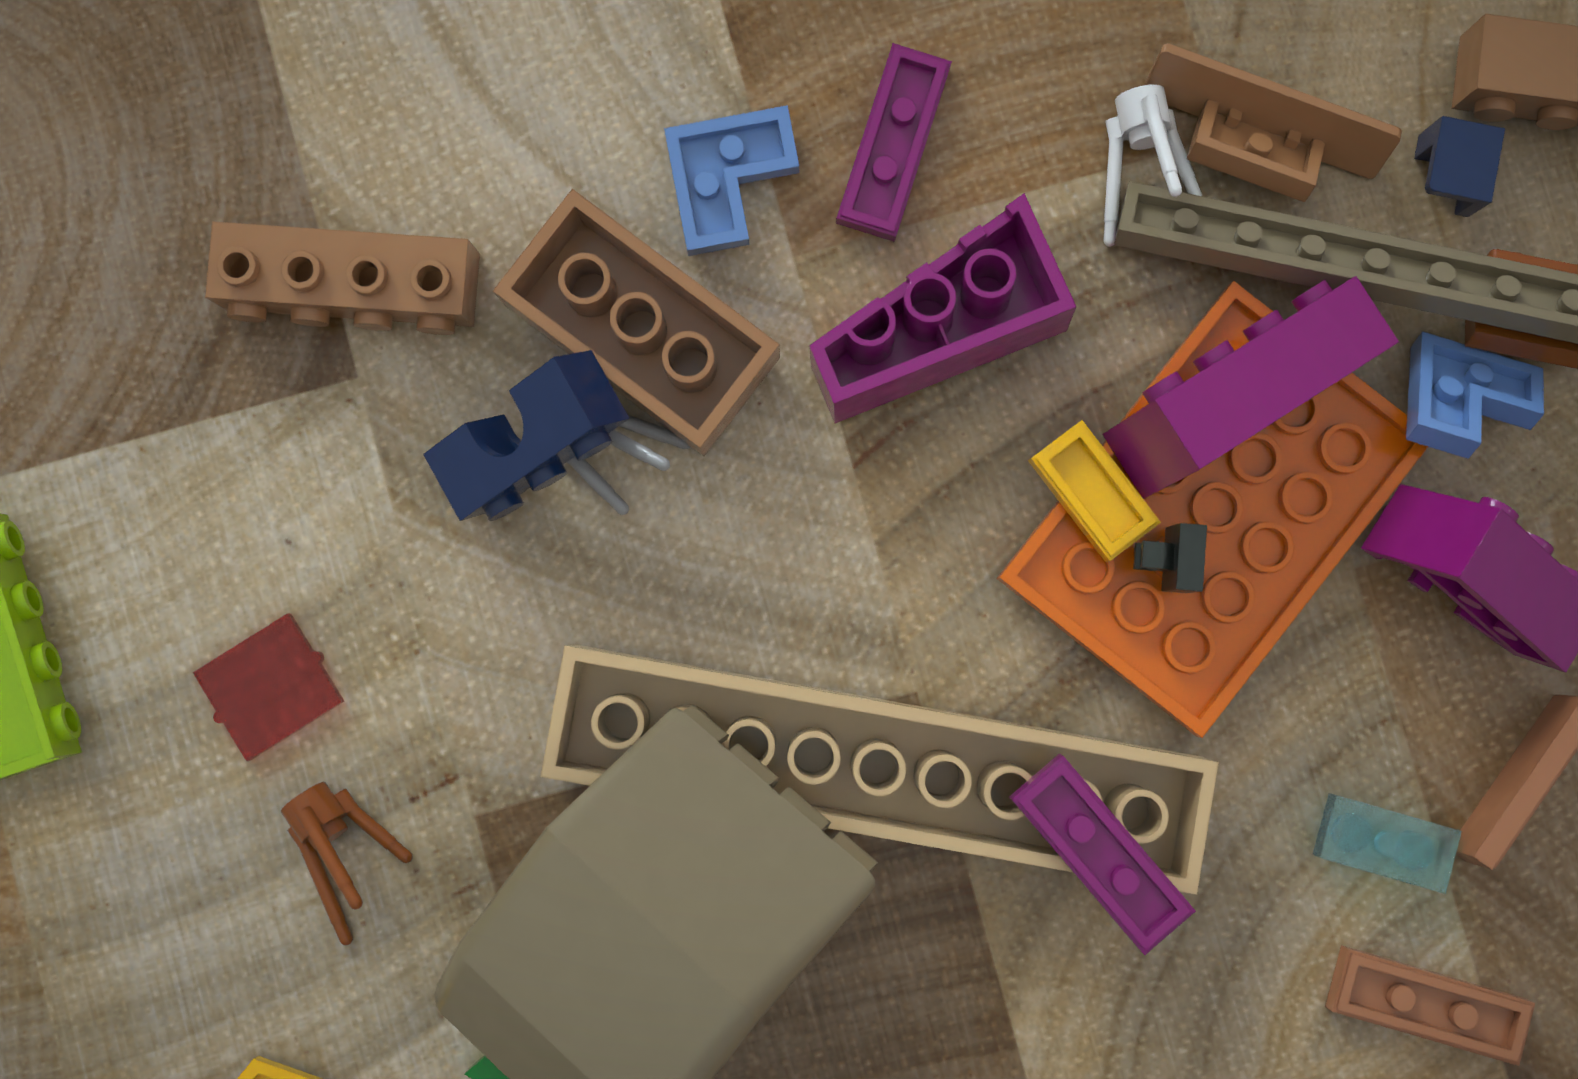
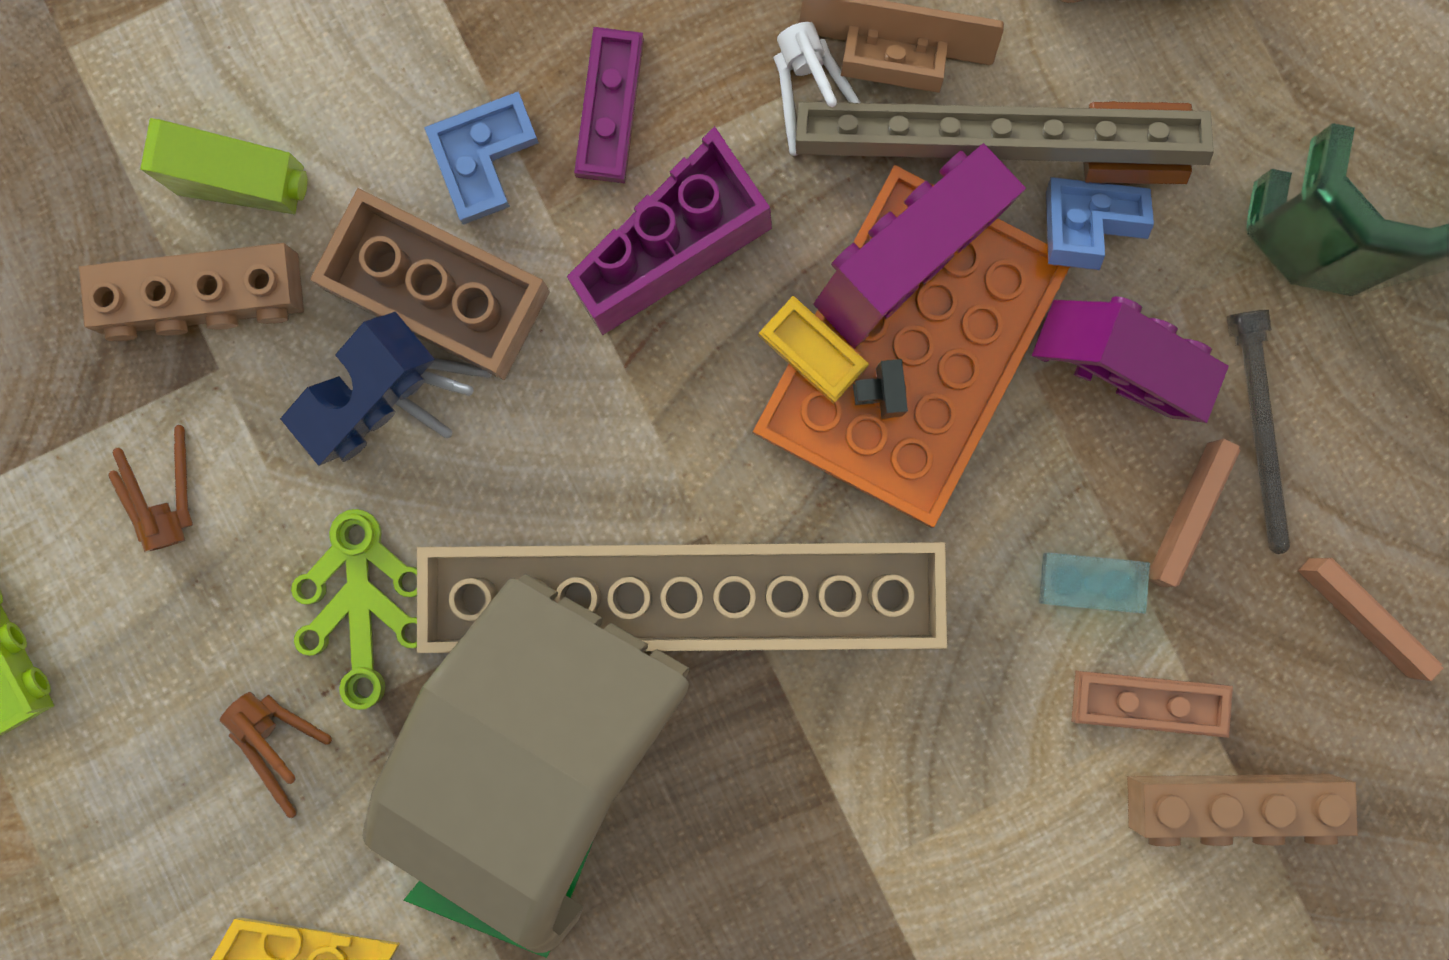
camera: 10 degrees left, 0 degrees up
(248, 555) = (155, 525): none -> dark orange plant
(268, 687) = (193, 626): clear red piece -> none
(409, 133) = (222, 168): none -> lime slope
(477, 692) = (358, 599): none -> lime plant
(1102, 854) = (866, 630): magenta tile -> none
(1462, 161) = (1055, 38): dark blue panel -> none

